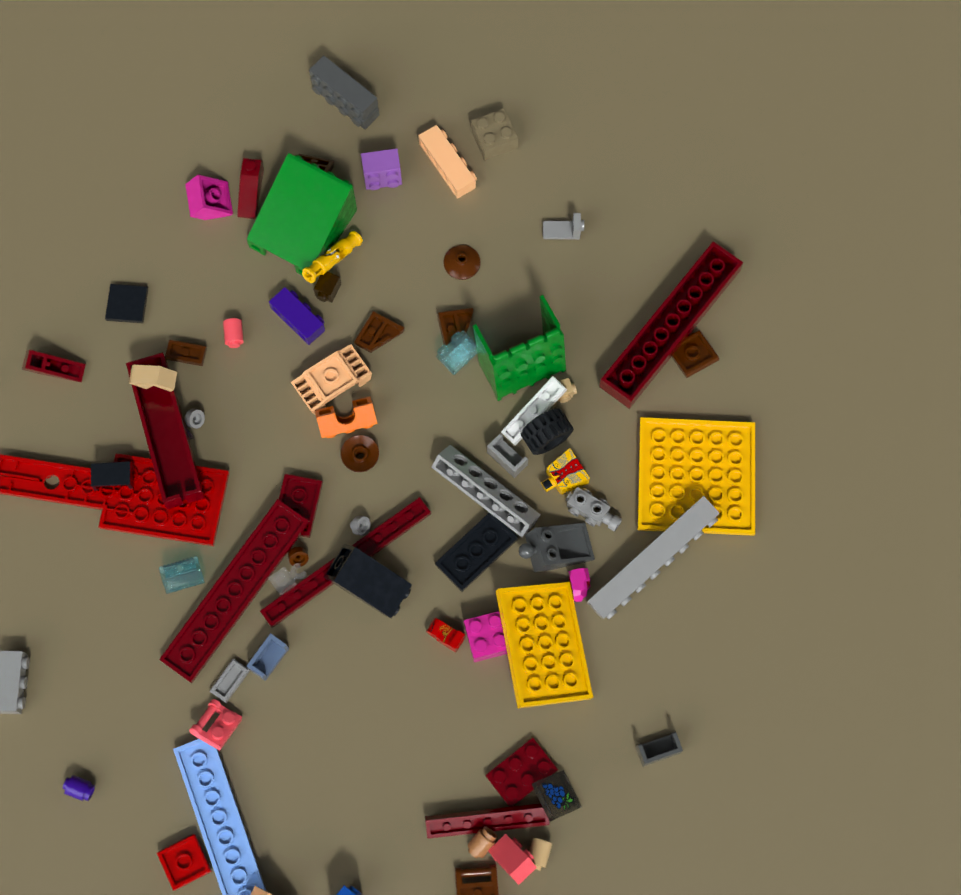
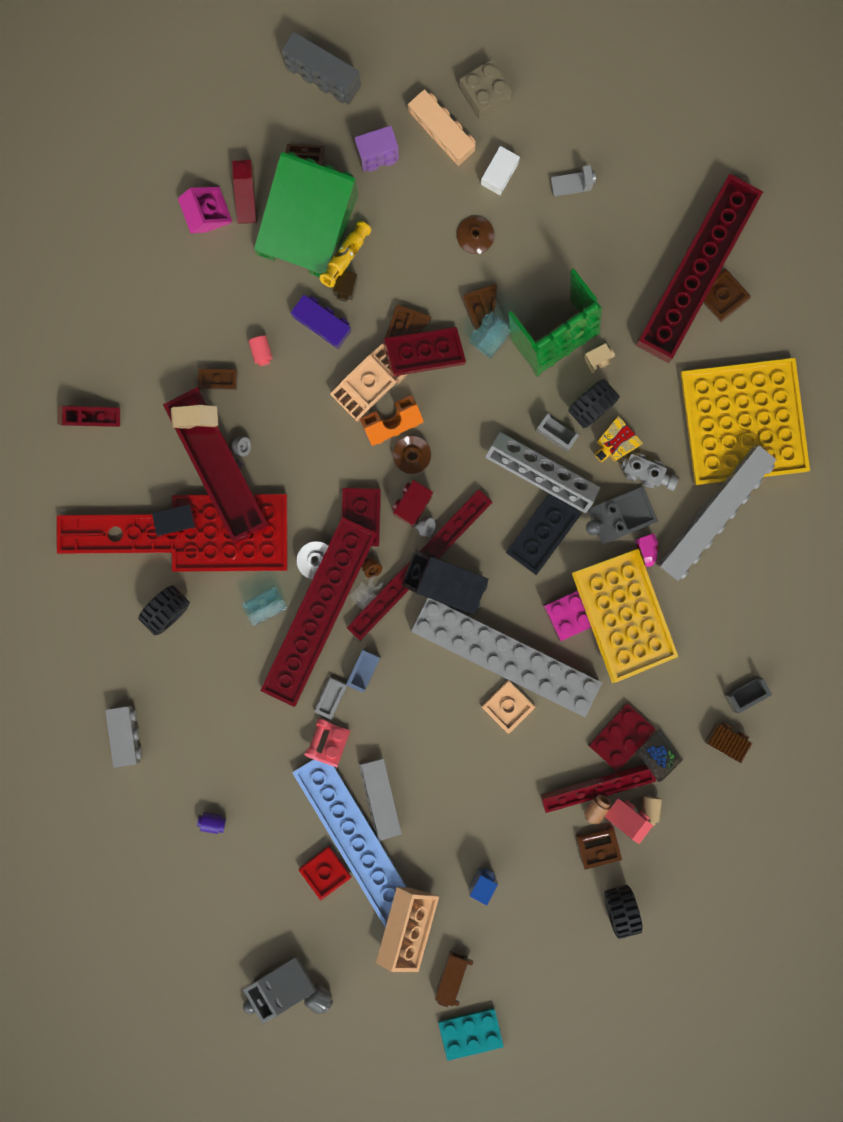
camera: 10 degrees left, 15 degrees up
(80, 560) = (163, 610): none -> black tyre
(126, 303) = (146, 336): black tile -> none
(234, 531) = (304, 557): none -> white dish
(257, 792) = (380, 799): none -> light grey brick
(350, 498) = (413, 503): none -> dark red brick
(390, 357) = (424, 351): none -> dark red plate
(409, 720) = (508, 706): none -> light nougat tile
(416, 667) = (506, 657): none -> light grey brick
(445, 634) = (528, 620): red leg -> none
(495, 207) = (500, 170): none -> white panel
(540, 403) = (576, 382): white tile -> none
(631, 795) = (728, 742): none -> reddish brown brick

